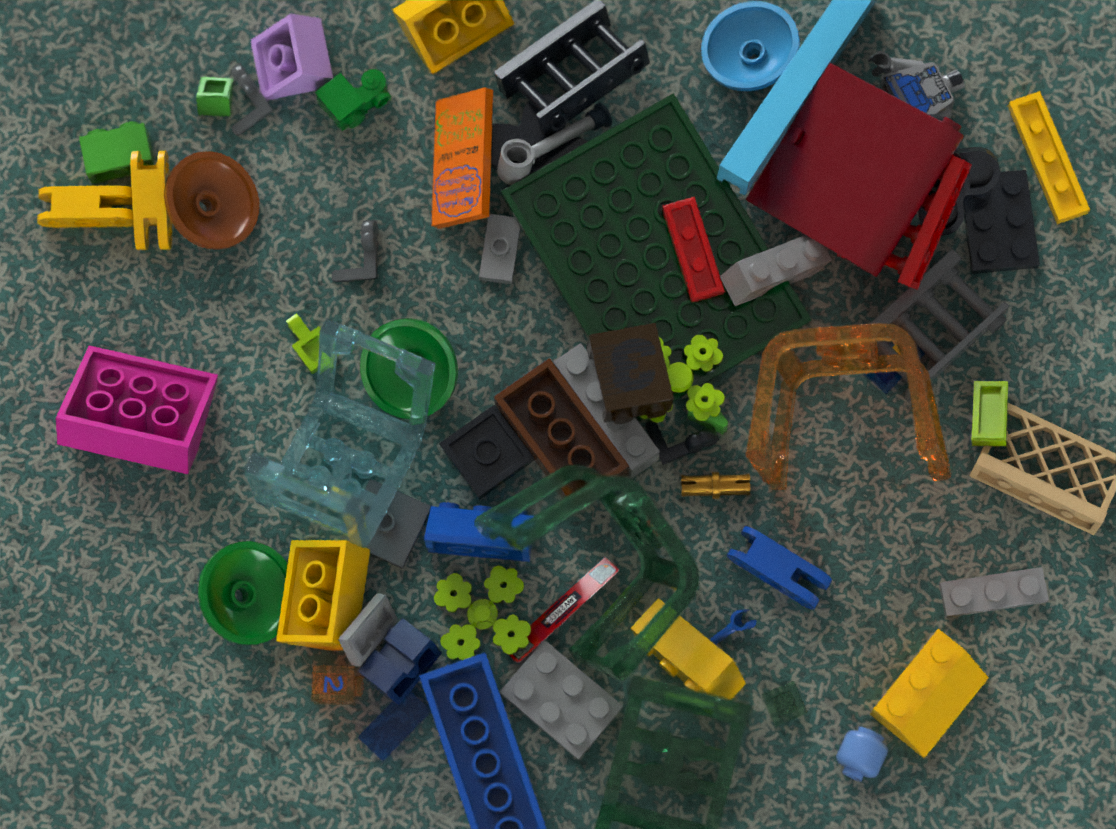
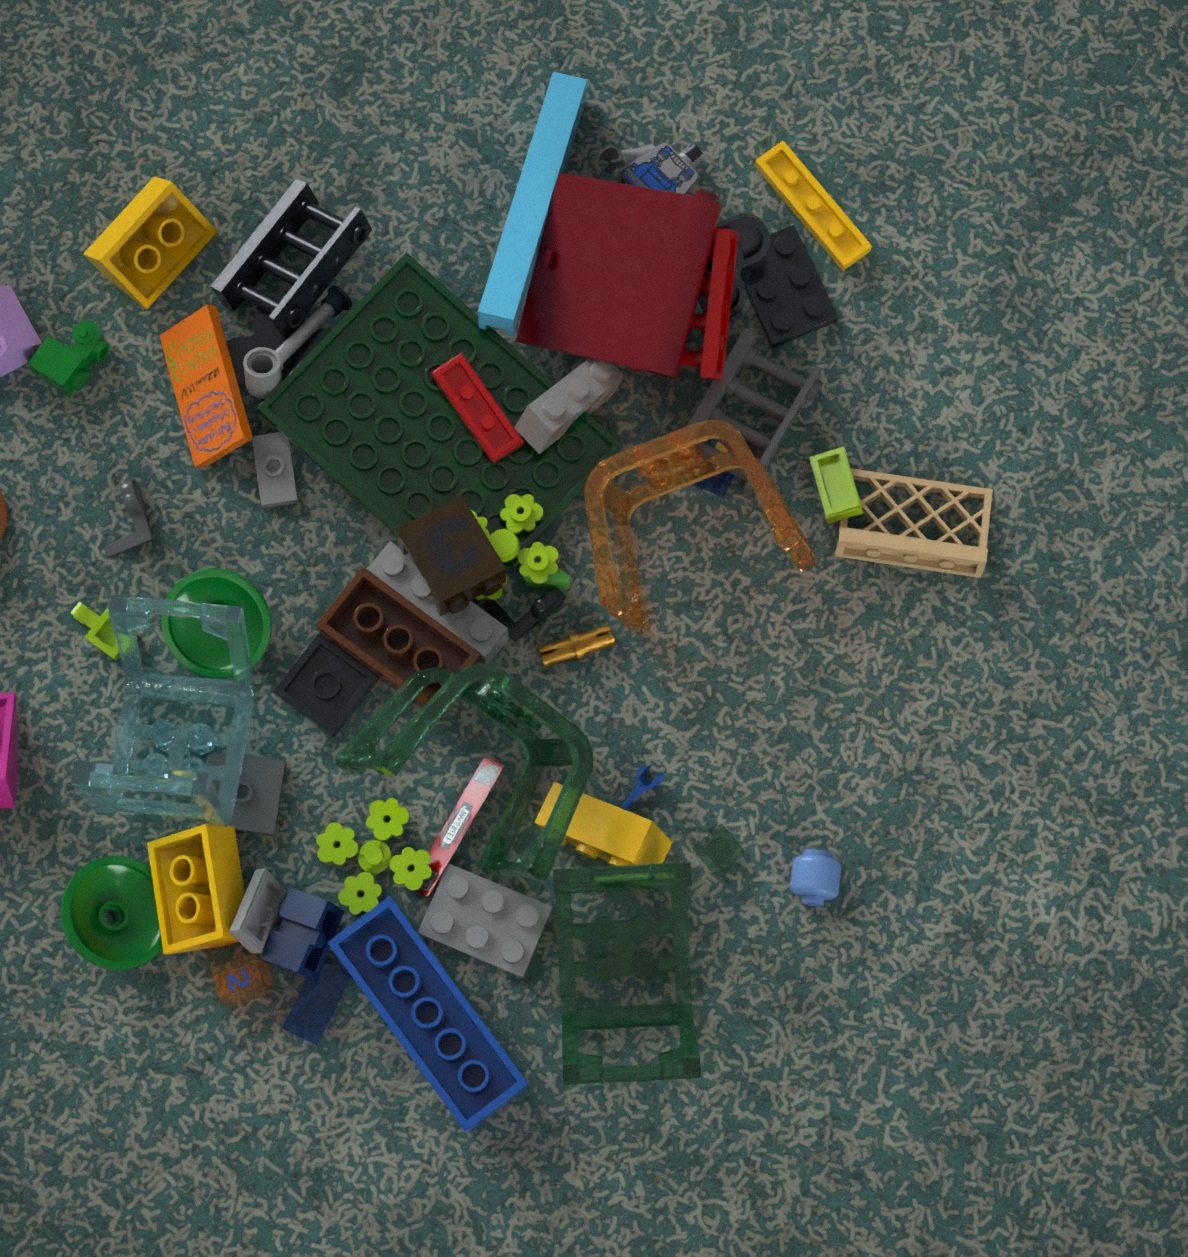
camera: 20 degrees left, 0 degrees up
(454, 533) = (317, 780): blue slope -> none
(748, 31) = (460, 169): dark azure dish -> none
(779, 568) = (670, 711): blue piece -> none
(930, 693) = (865, 792): yellow slope -> none
(993, 592) = (897, 667): light grey plate -> none

